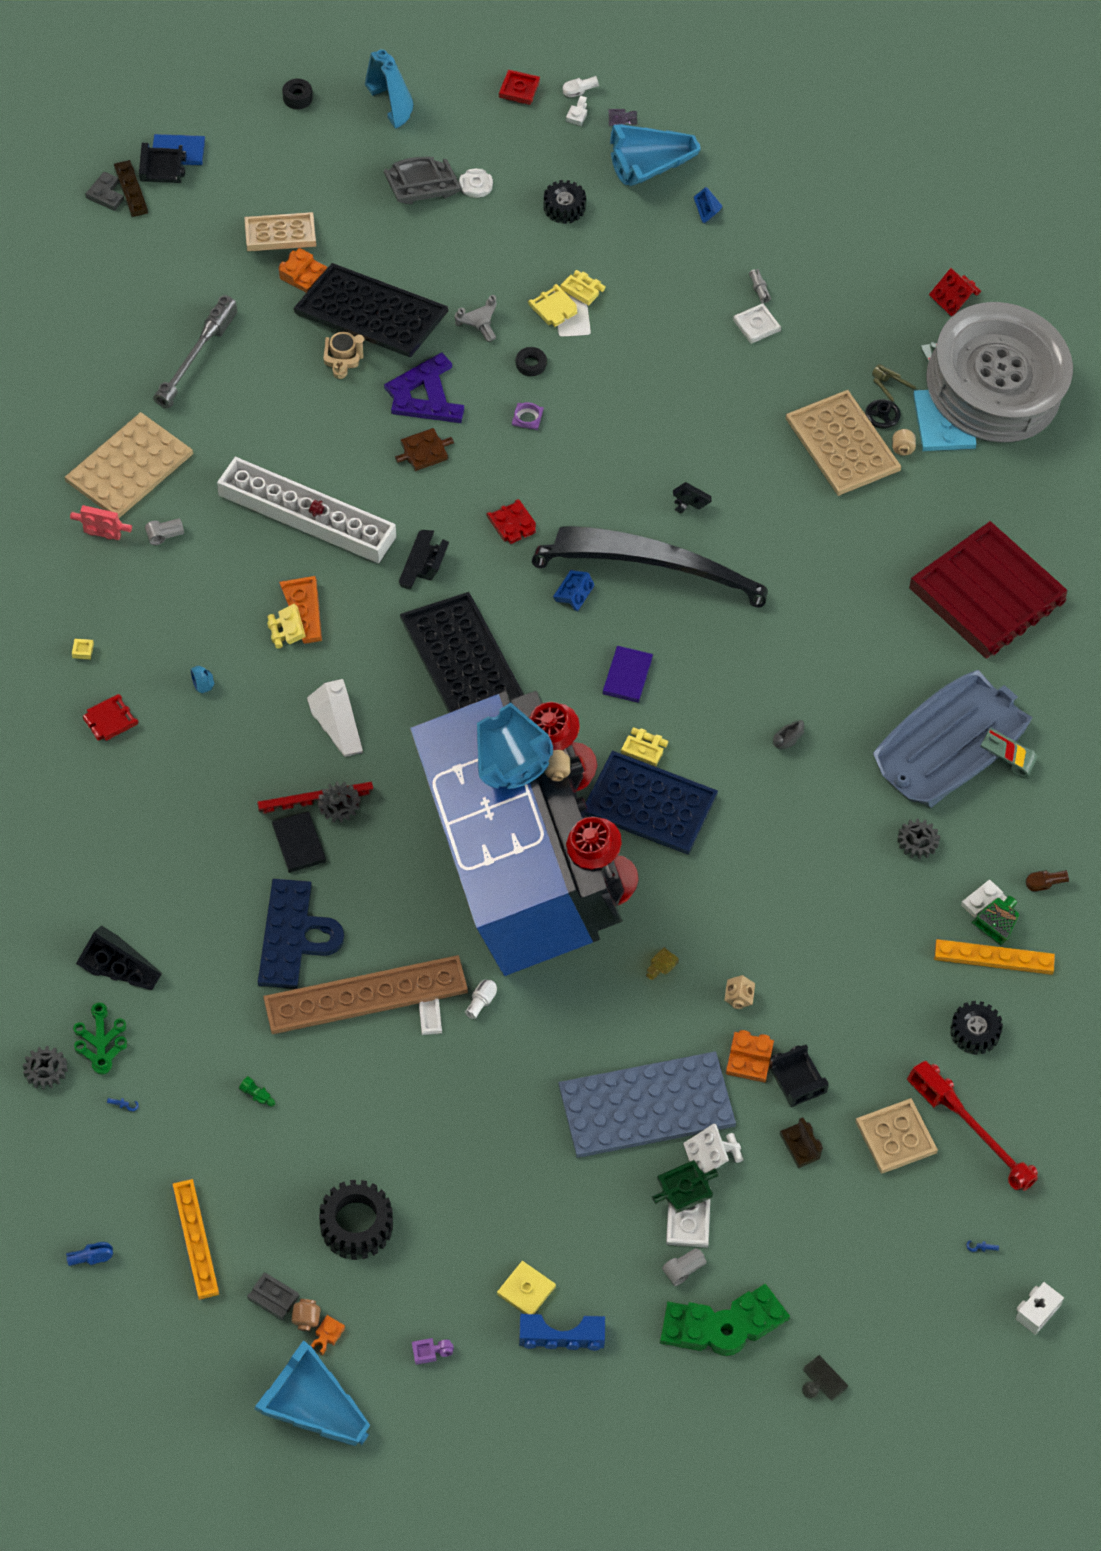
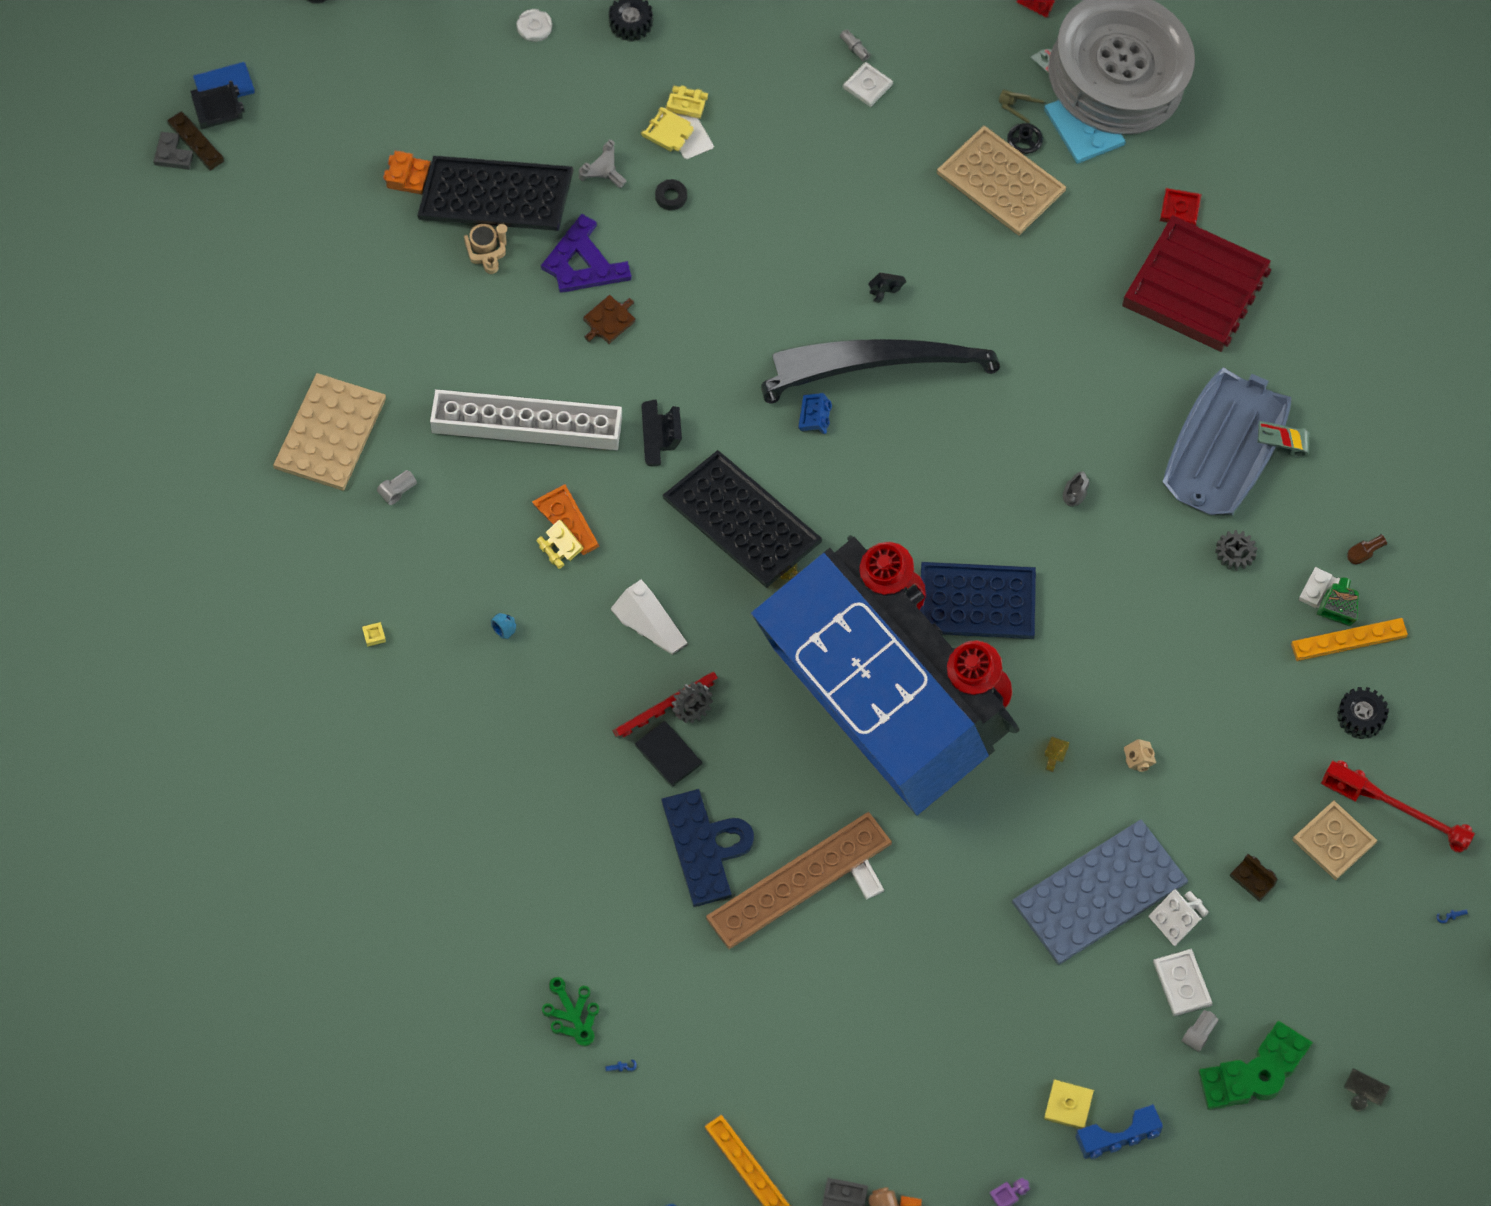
camera: 20 degrees left, 5 degrees up
(44, 1071) = (540, 1063): dark grey gear -> none
(100, 522) = (334, 501): coral plate -> none
(109, 719) = (432, 695): red plate -> none
(114, 958) = (547, 929): black wedge -> none
(215, 324) = (347, 260): flat silver bar -> none
(259, 1095) = (741, 1010): green piece -> none
(280, 231) = (367, 139): tan plate -> none
(316, 508) = (540, 416): dark red plate -> none
(361, 1242) = (880, 1119): black tyre -> none
(421, 179) = (481, 39): dark grey slope -> none
(481, 997) = (907, 844): white arm -> none
(511, 749) = (864, 602): dark azure cone -> none
(512, 522) = (726, 364): red plate -> none
(527, 407) = (692, 242): medium lavender piece -> none
(558, 766) = (908, 603): tan head -> none
(627, 674) = (901, 480): dark purple tile -> none
(642, 750) = (946, 551): light yellow plate -> none
(685, 1186) = (1170, 956): dark green plate -> none
(750, 1056) = (1173, 812): orange plate -> none
(797, 1076) = (1223, 815): black panel -> none
(904, 441) = (1058, 161): tan head -> none
(1005, 517) = (1180, 204): none -> red tile

